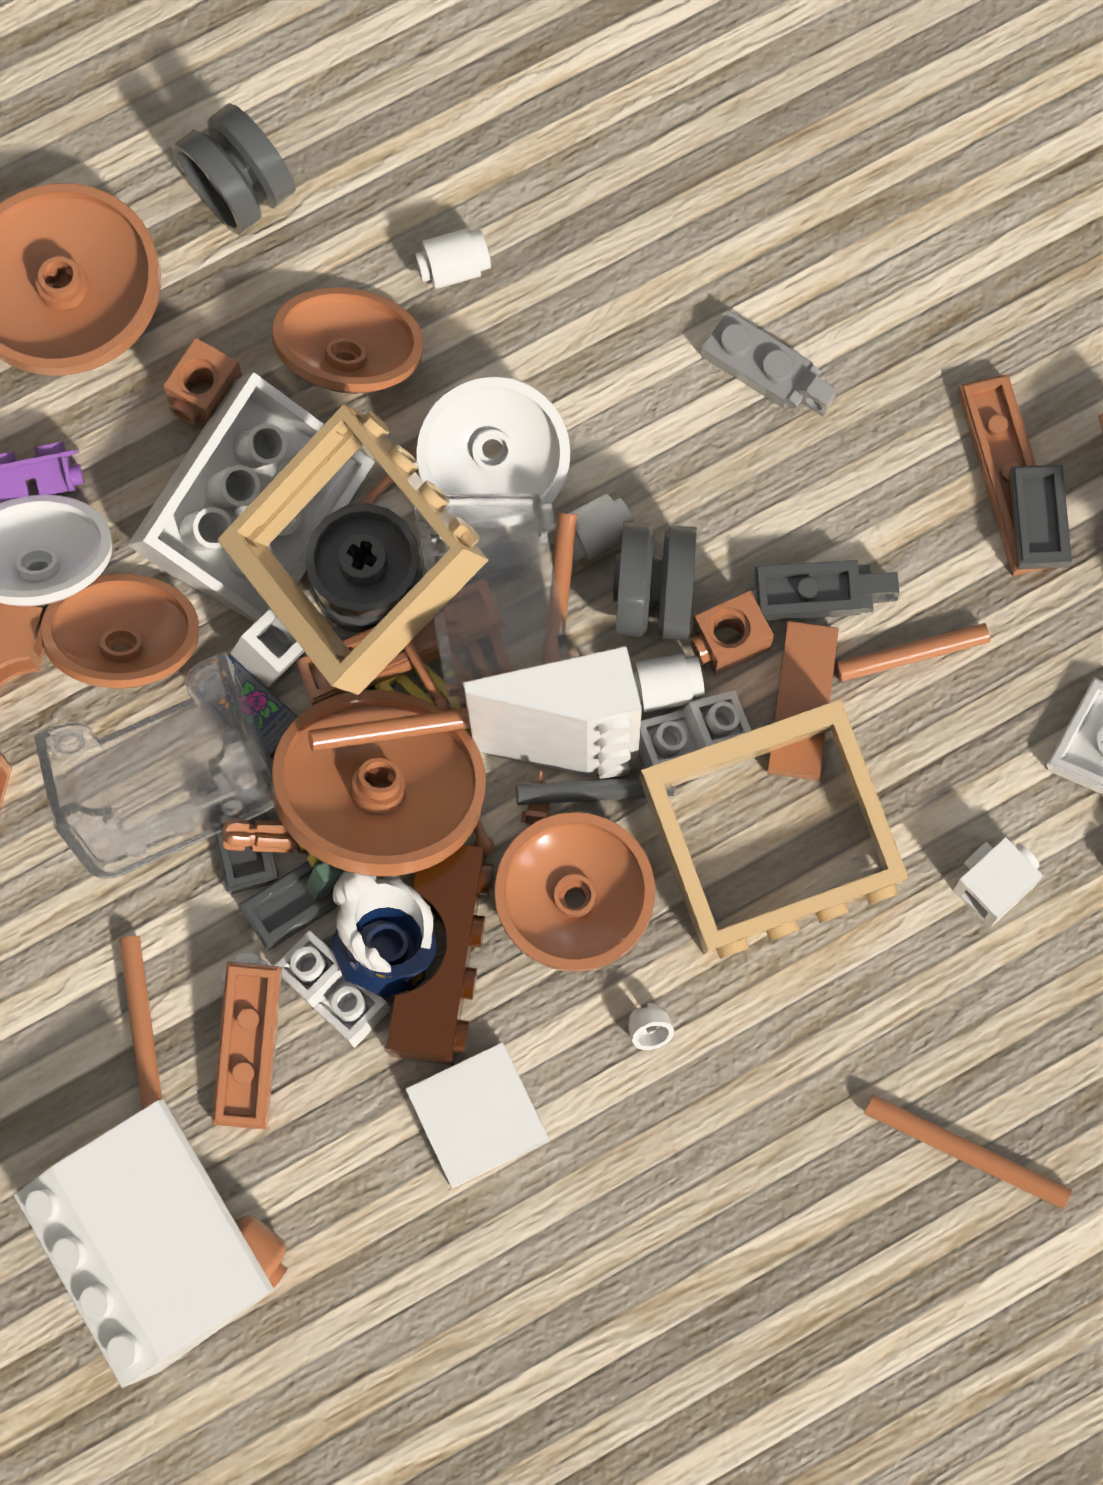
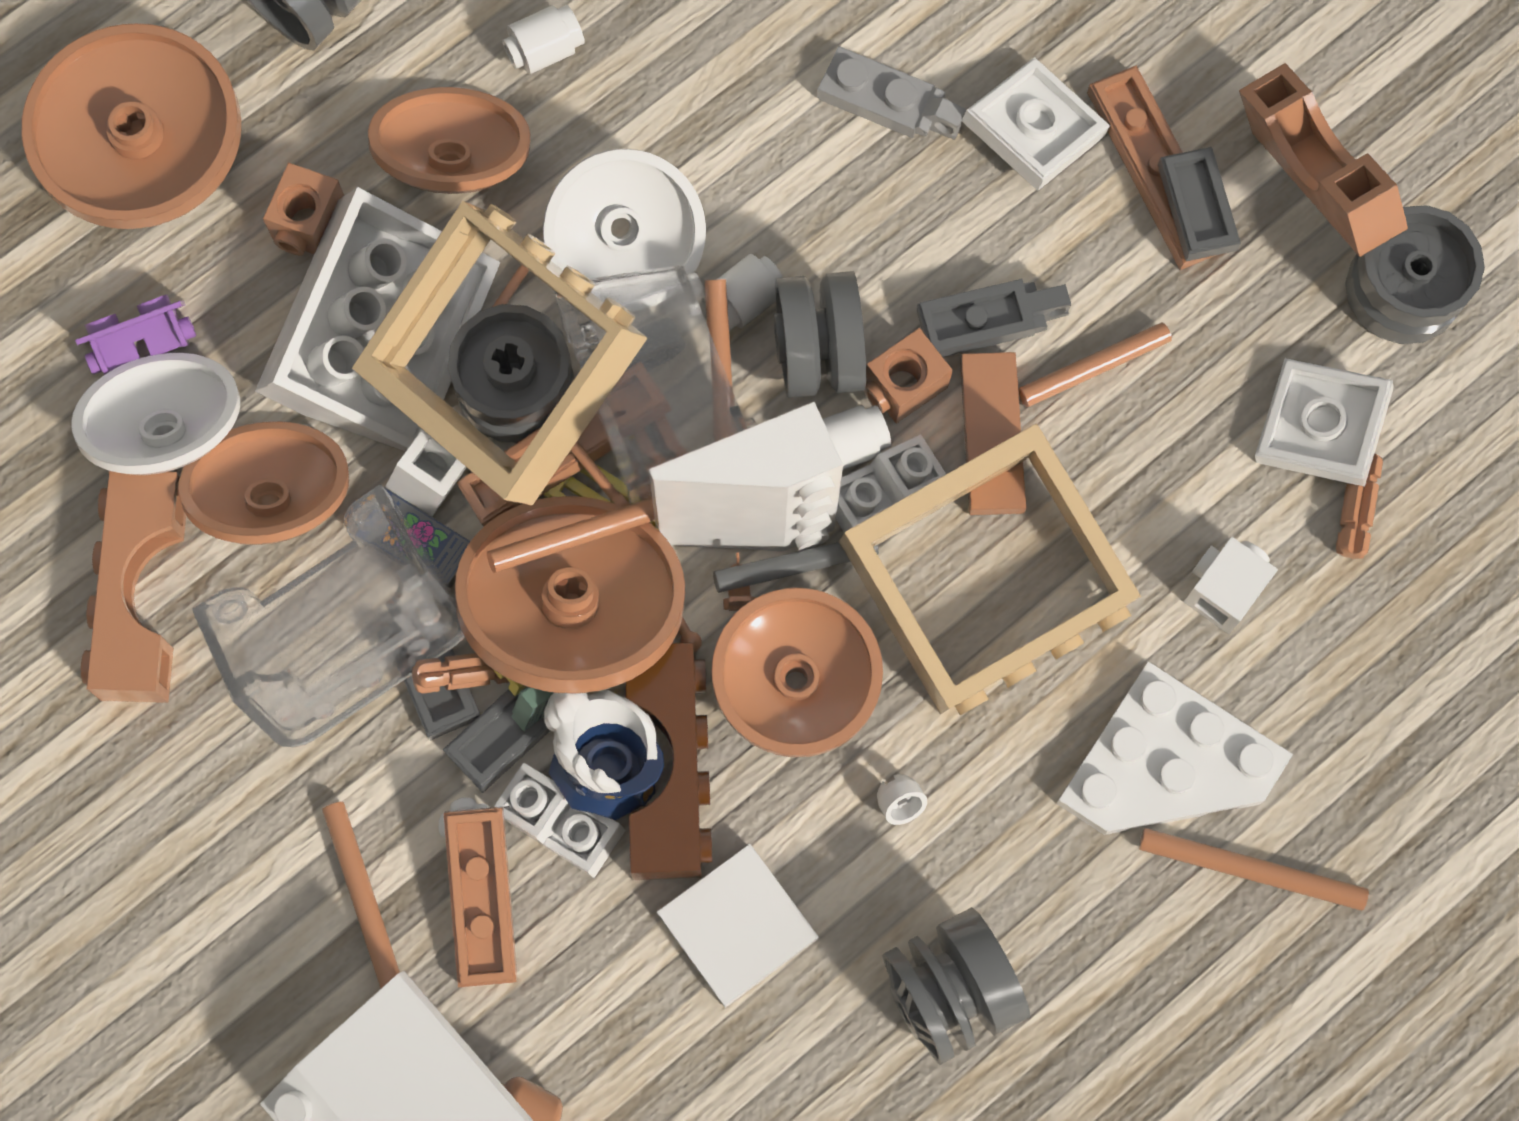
camera: 15 degrees left, 0 degrees up
(664, 1207) = (956, 985): none -> dark grey wheel
(900, 414) = (1035, 123): none -> white tile
(909, 1036) = (1170, 760): none -> white plate

